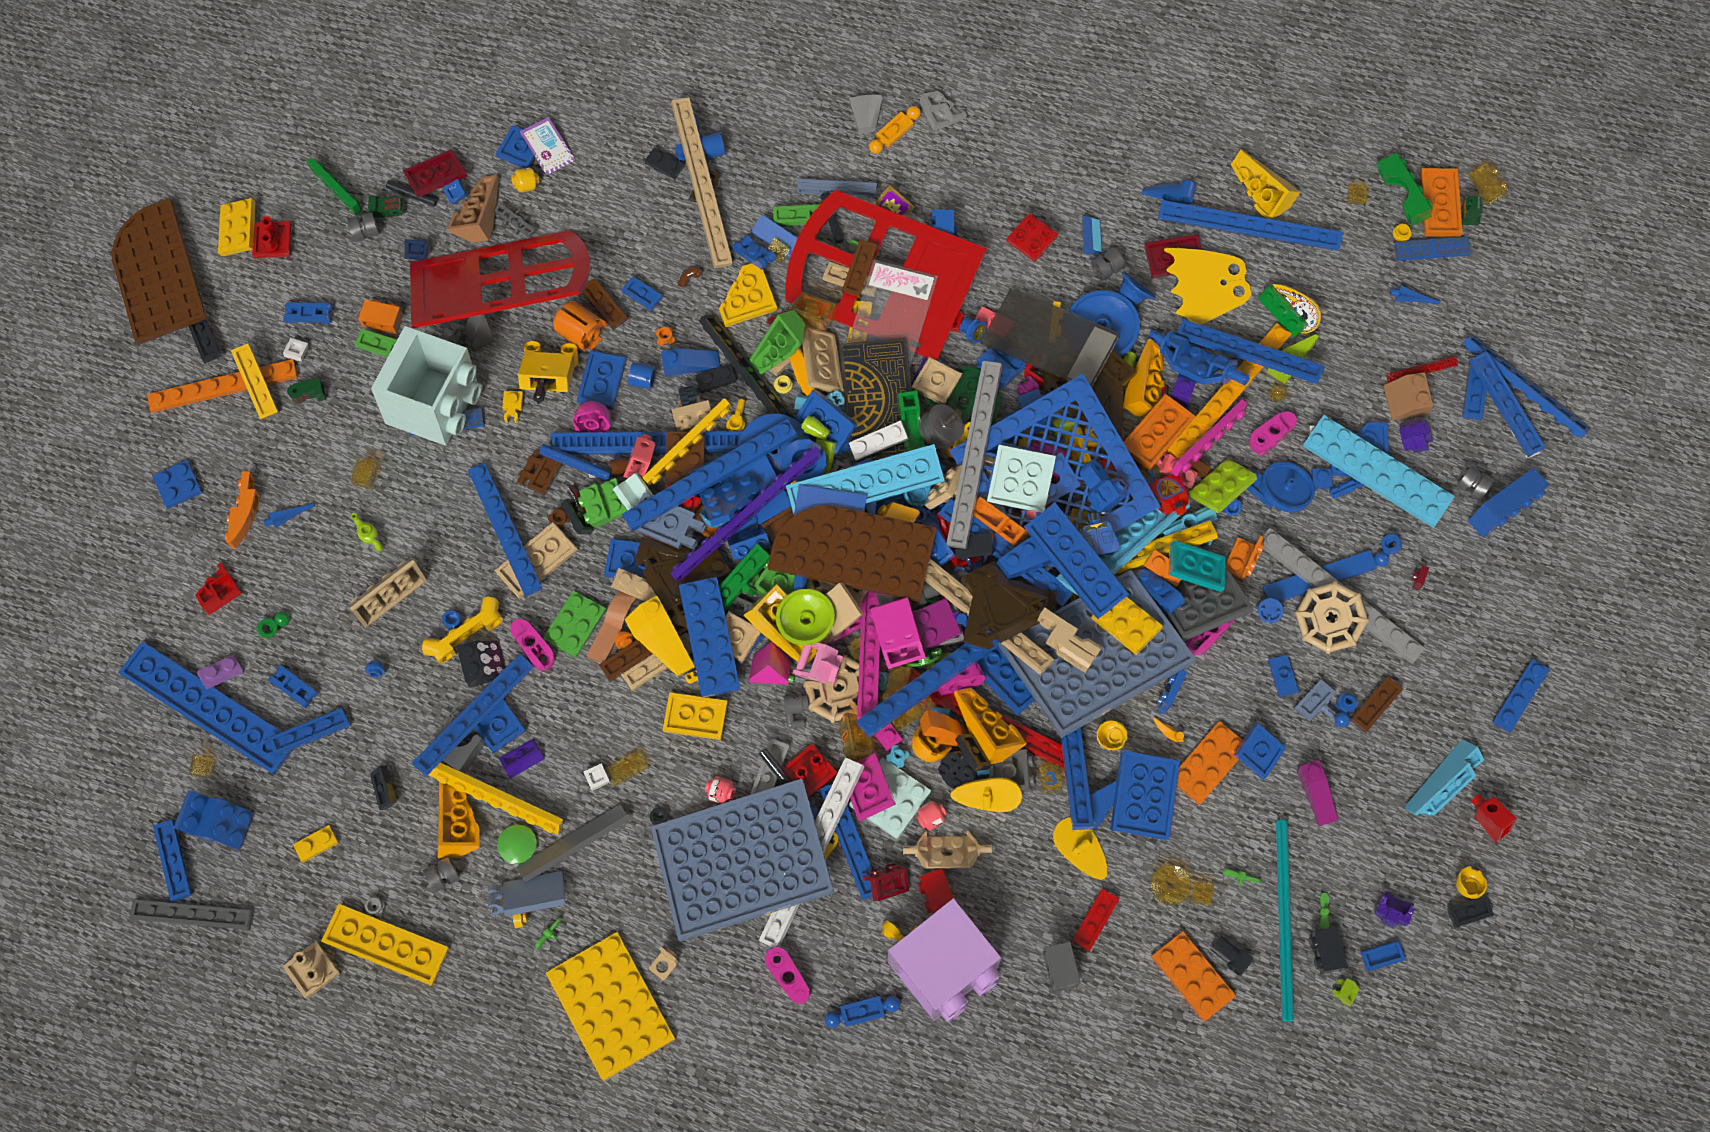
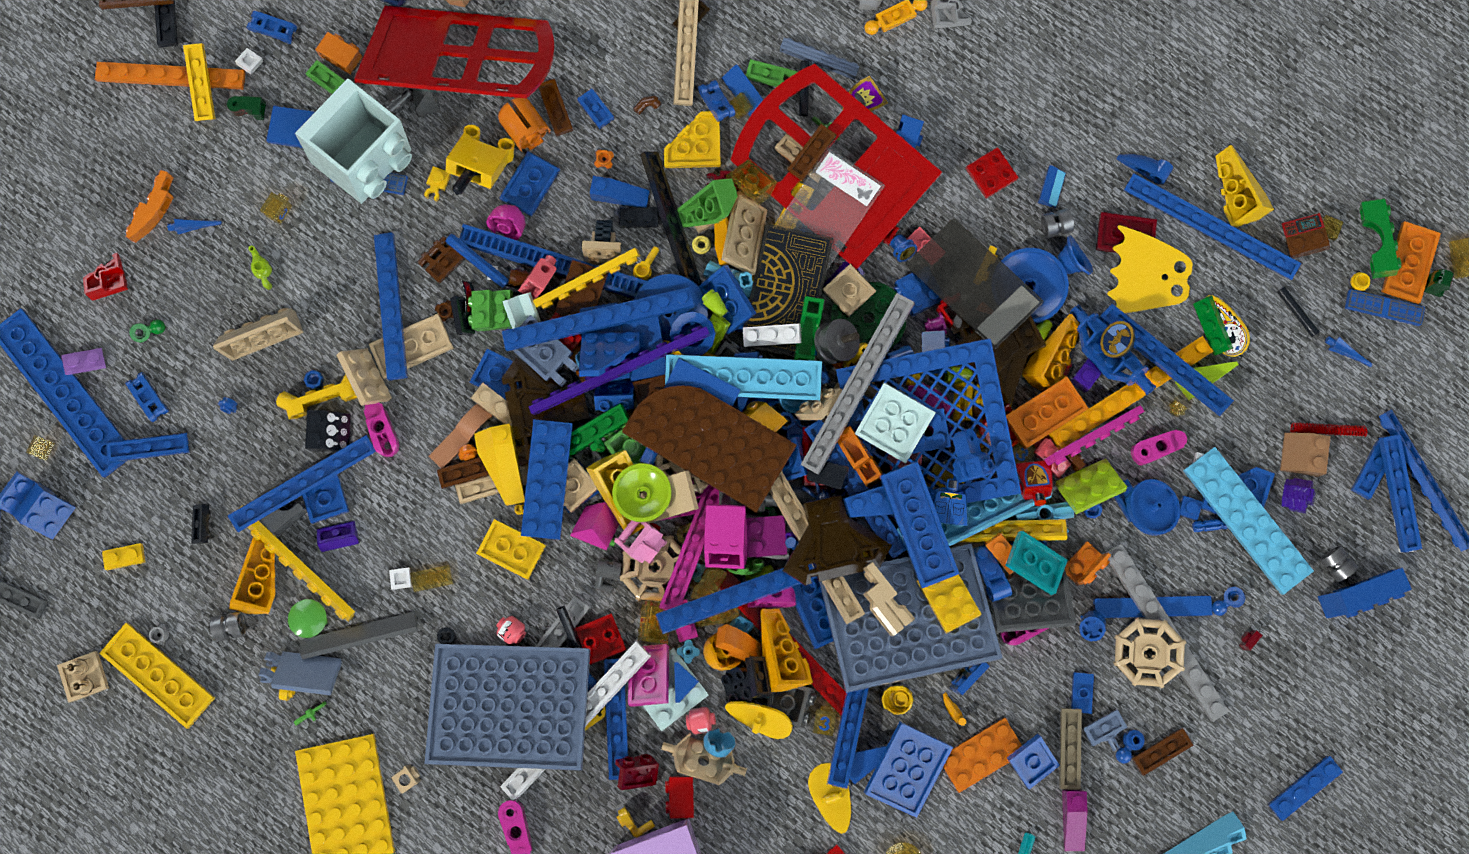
camera: 15 degrees right, 10 degrees up
(177, 484) = (99, 161): blue plate -> none
(354, 397) = (285, 124): none -> blue tile
(501, 599) = (364, 376): none -> tan plate
(574, 624) = (427, 421): bright green plate -> none
(642, 375) = (568, 193): blue piece -> none
(903, 781) = (683, 682): none -> blue slope
(956, 830) = (719, 743): none -> dark azure hair
(1200, 345) = (1117, 339): none -> shield
(1290, 728) = (1070, 748): none -> dark tan plate
(1338, 207) = (1306, 236): none -> reddish brown slope
(1356, 276) = (1298, 312): none -> black piece

